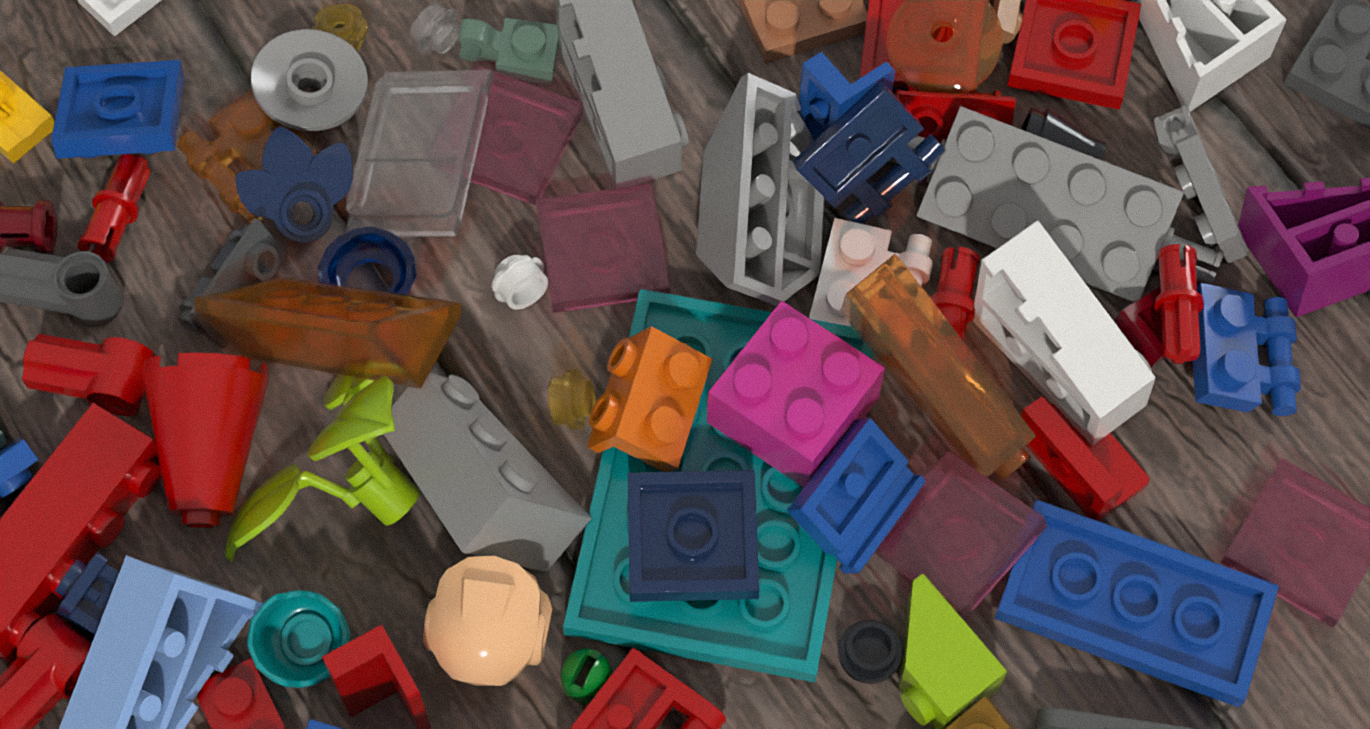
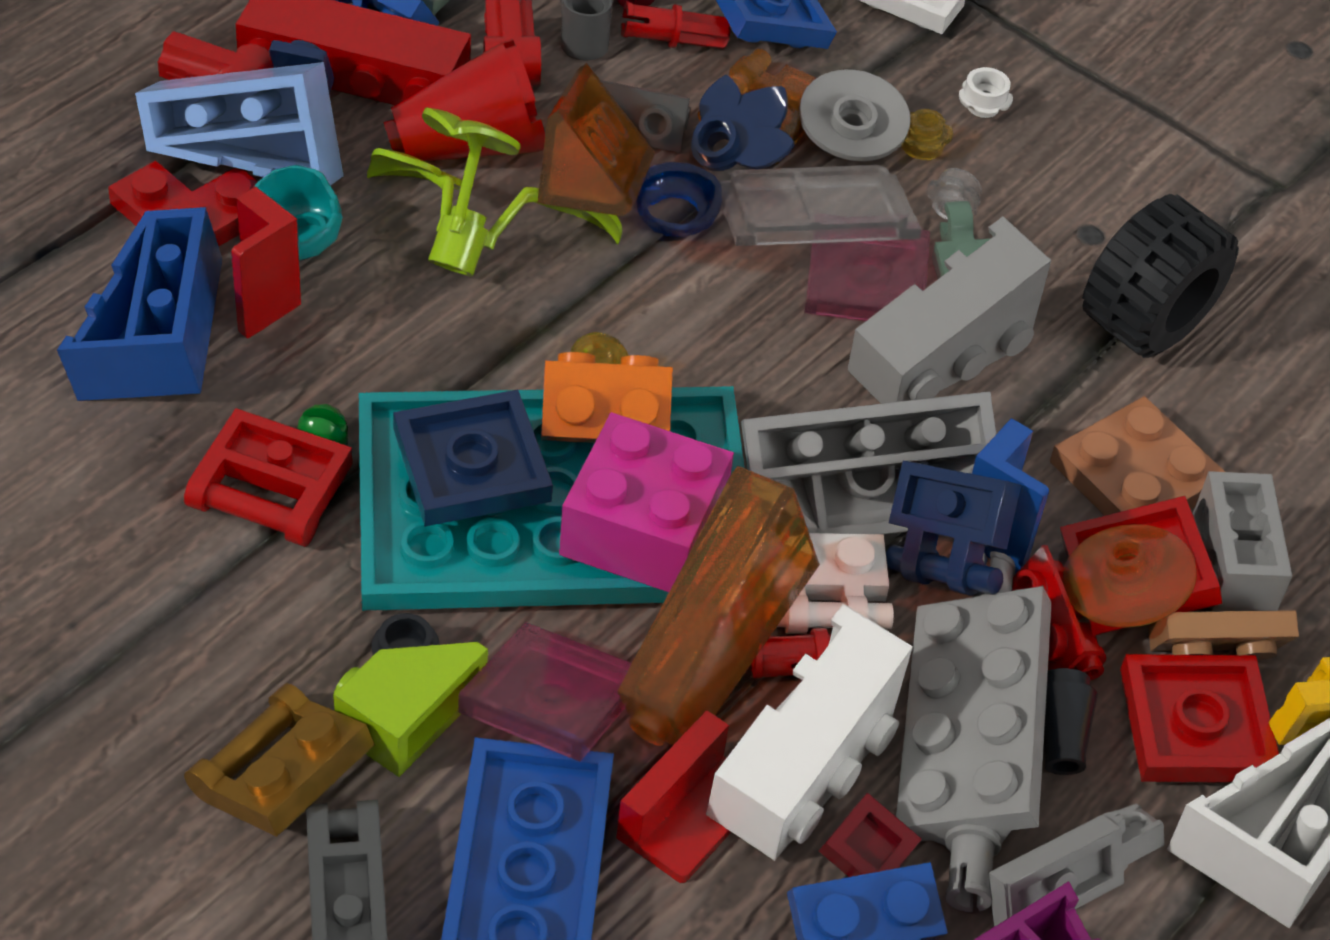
camera: 70 degrees right, 15 degrees down
(481, 476) = (483, 299): light grey wedge -> none
(487, 621) = (335, 322): light nougat helmet -> none
(519, 281) = (710, 304): white plate -> none
(602, 247) = (776, 362): clear pink tile -> none
(856, 495) = (557, 581): blue plate -> none
(1179, 303) = (892, 840): red axle -> none

